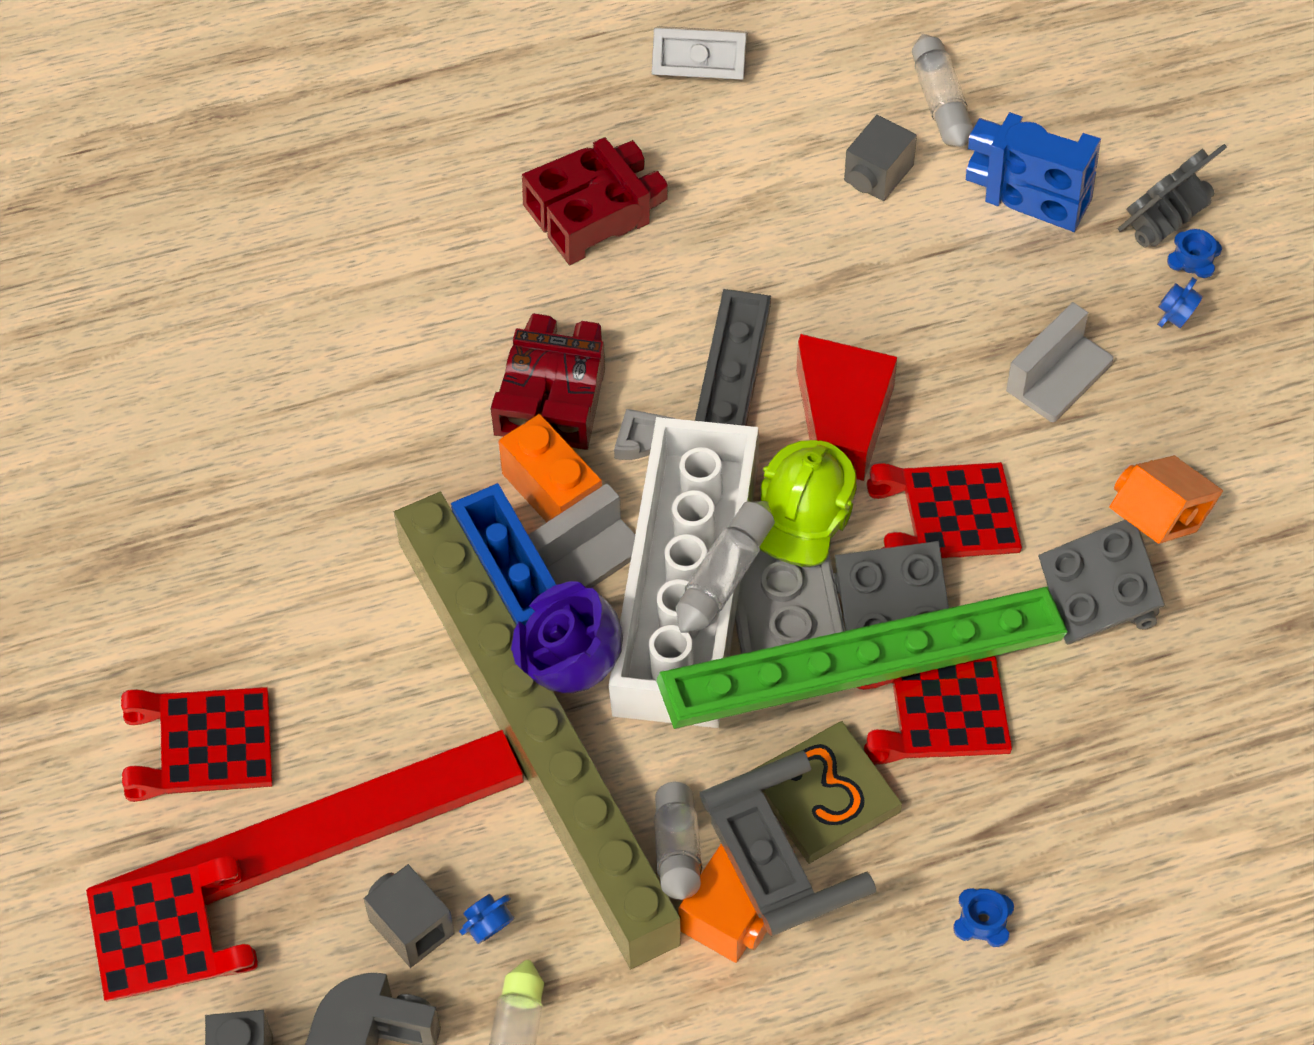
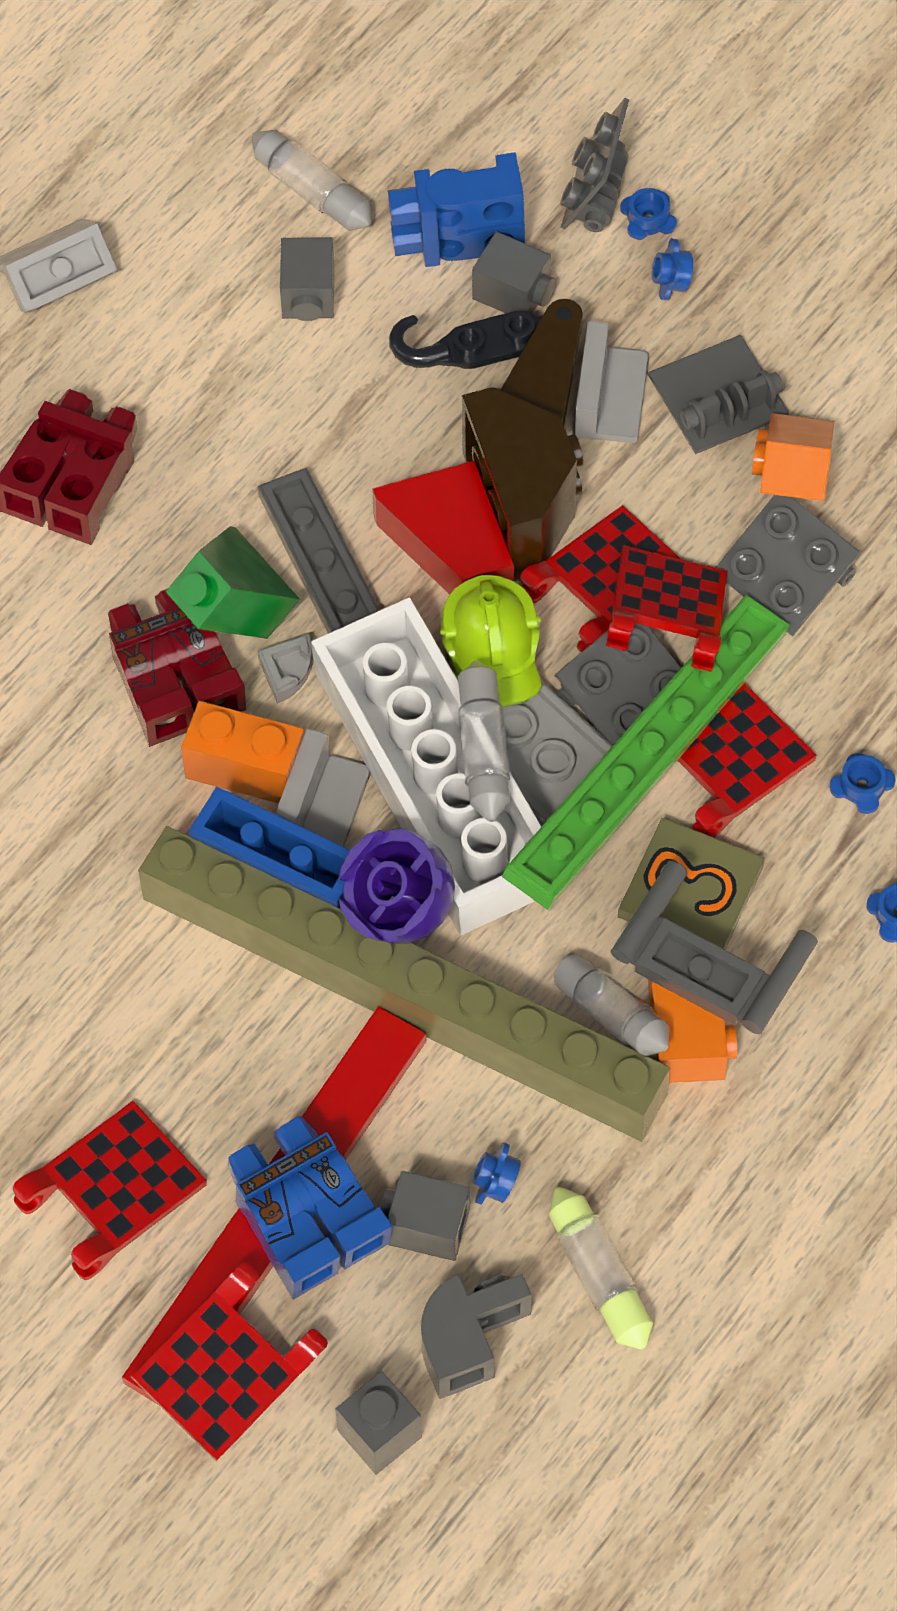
camera: 35 degrees left, 5 degrees up
(312, 826) = (306, 1207): none -> blue hips
(630, 345) = (232, 589): none -> green slope
(949, 357) = (518, 430): none -> dark brown slope
(975, 549) = (668, 597): none -> red flag
(1035, 779) = (862, 768): none -> blue plate
(1042, 240) = (512, 276): none -> dark grey brick
(1146, 419) = (718, 393): none -> dark grey hinge

